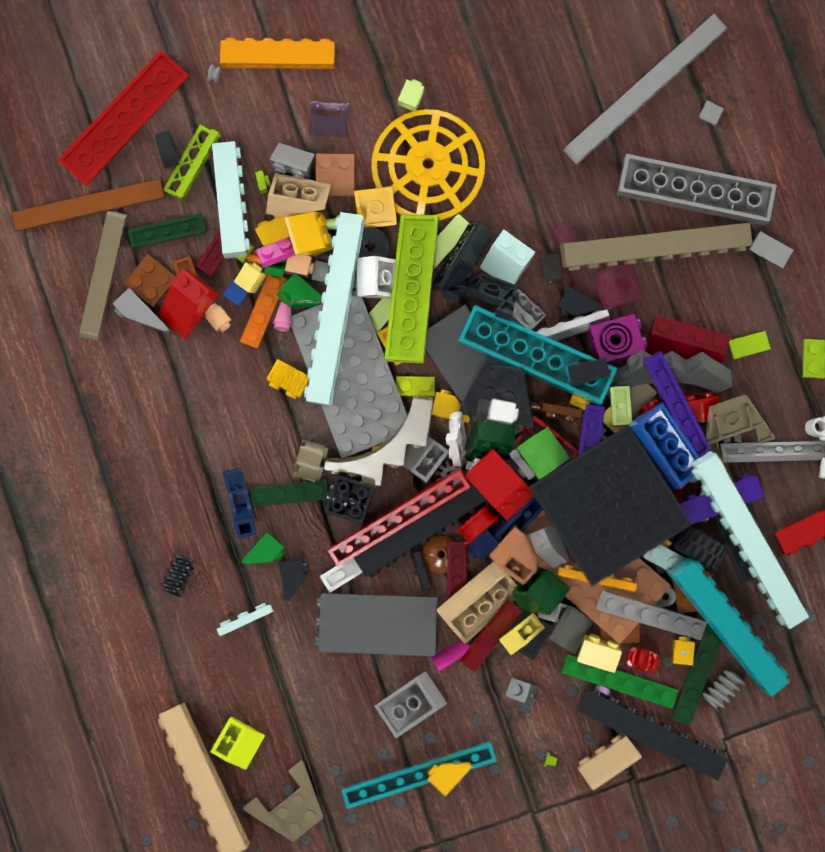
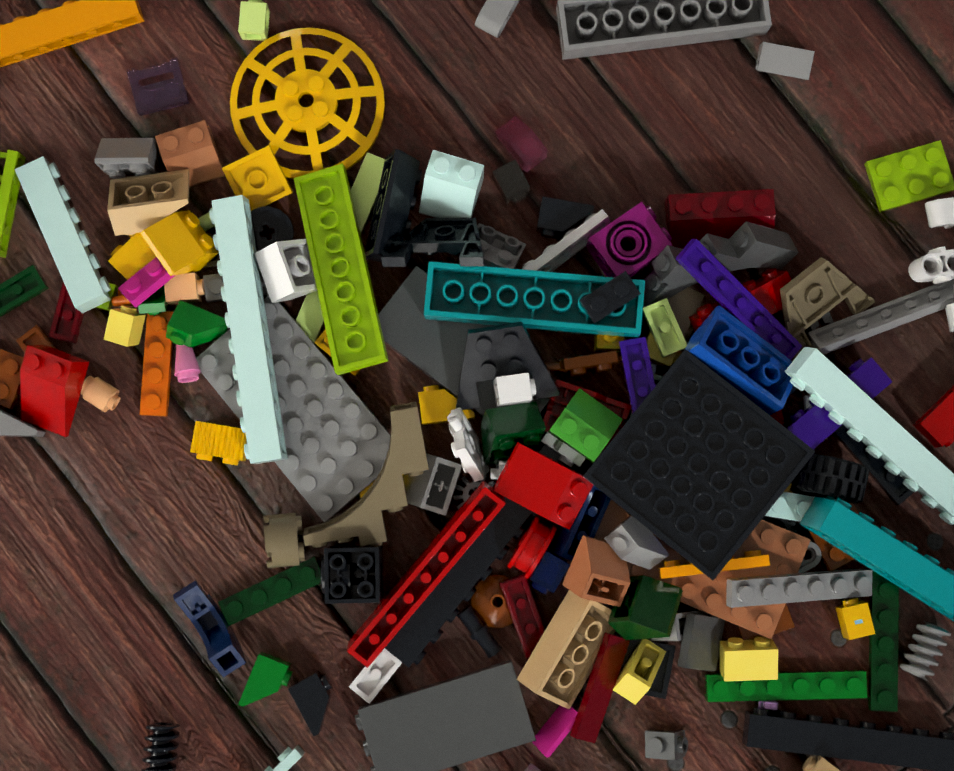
camera: 25 degrees left, 0 degrees up
(235, 293) = (113, 354): blue tile -> none
(263, 181) = (98, 196): lime plate -> none
(416, 386) = (389, 393): neon yellow plate -> none
(617, 286) = (604, 175): clear pink slope -> none
(642, 660) = (807, 649): red gear -> none
(656, 245) = (635, 105): dark tan brick -> none
(749, 345) = (799, 193): lime tile -> none

